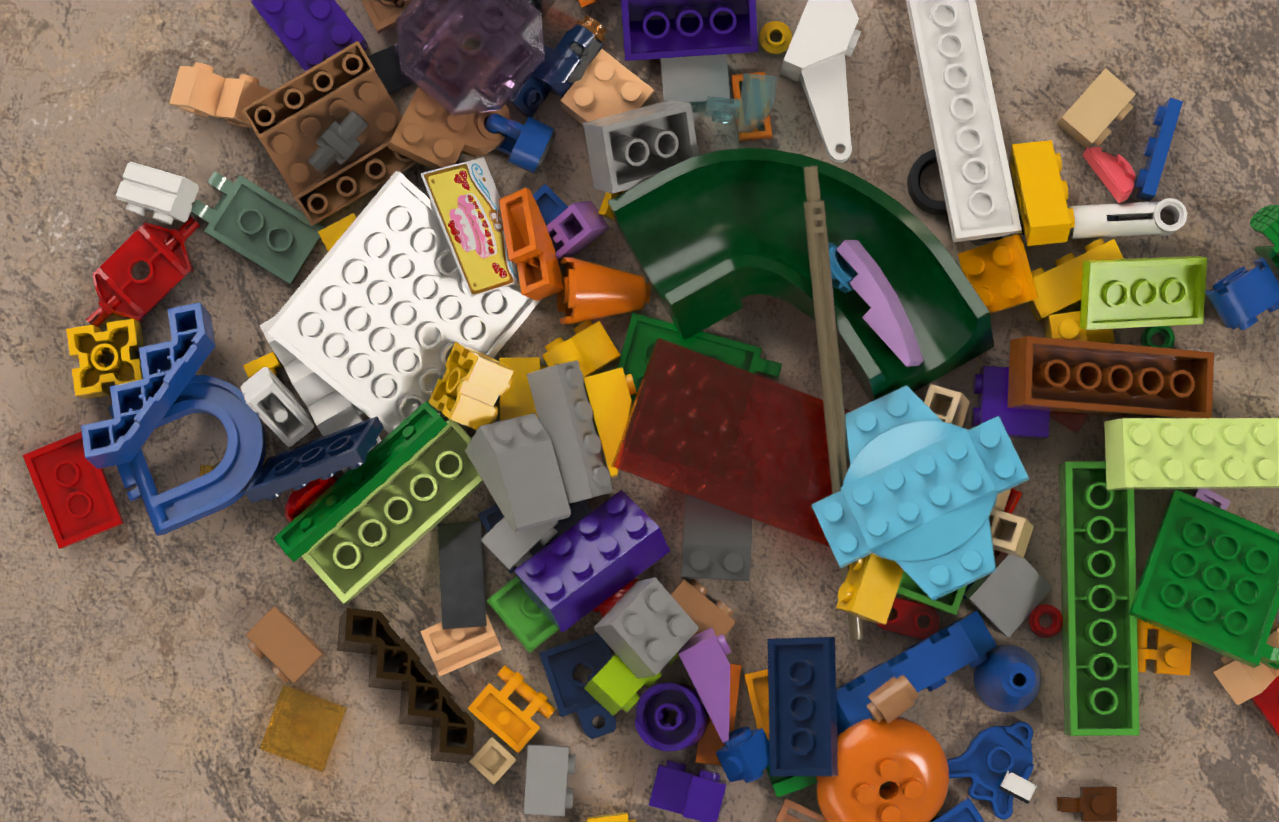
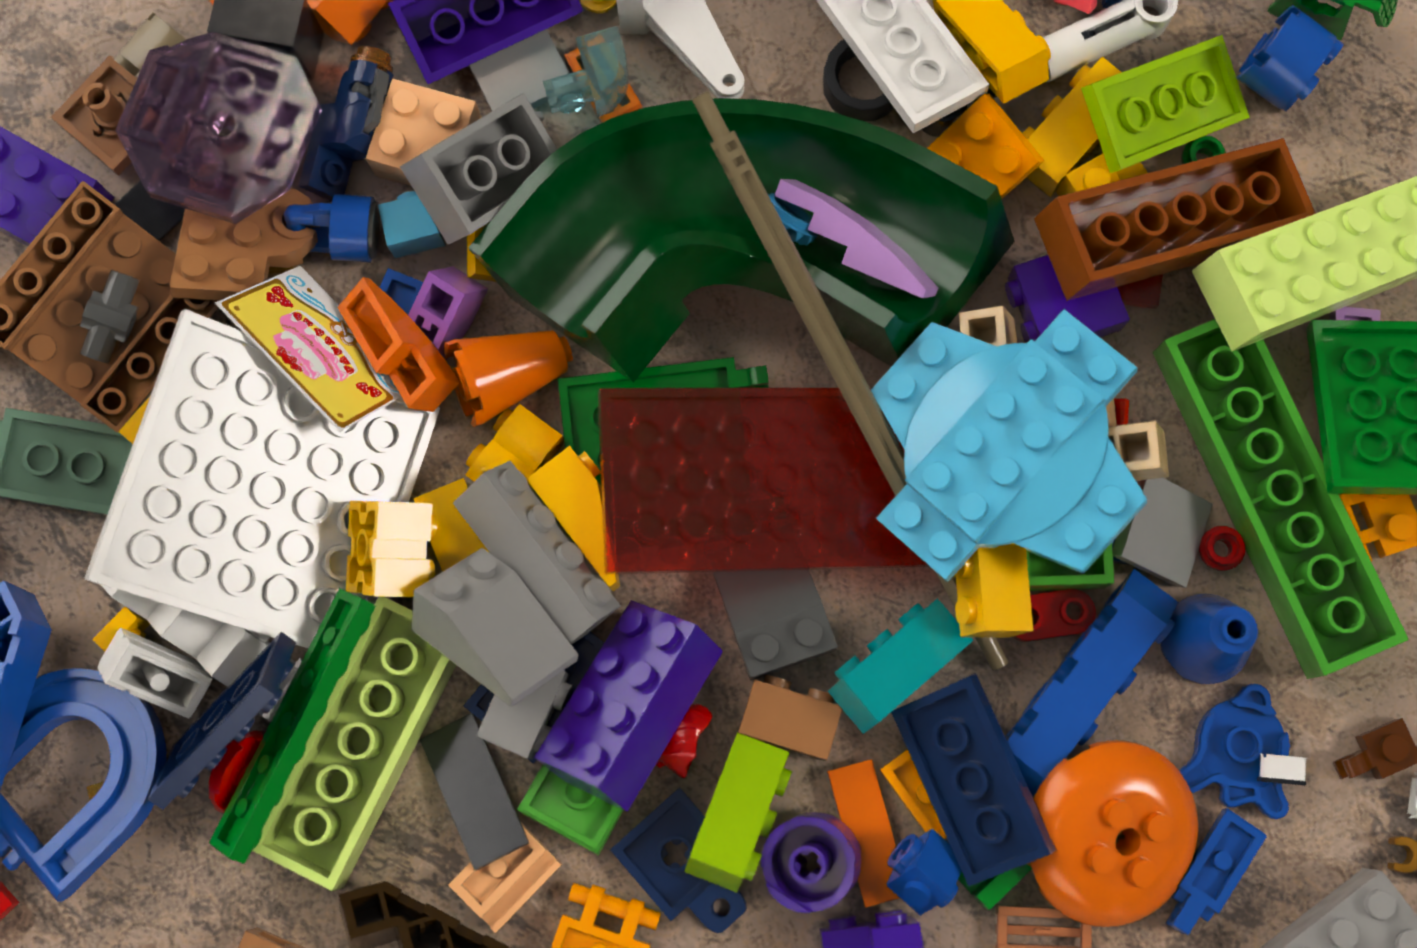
camera: 15 degrees left, 5 degrees down
(571, 158) = (408, 226): none -> medium azure brick
(646, 628) = (733, 761): light grey brick -> none
(710, 673) = (838, 786): medium lavender slope -> none
(786, 608) = (898, 664): none -> teal brick
(892, 699) = (1083, 722): medium nougat brick -> none

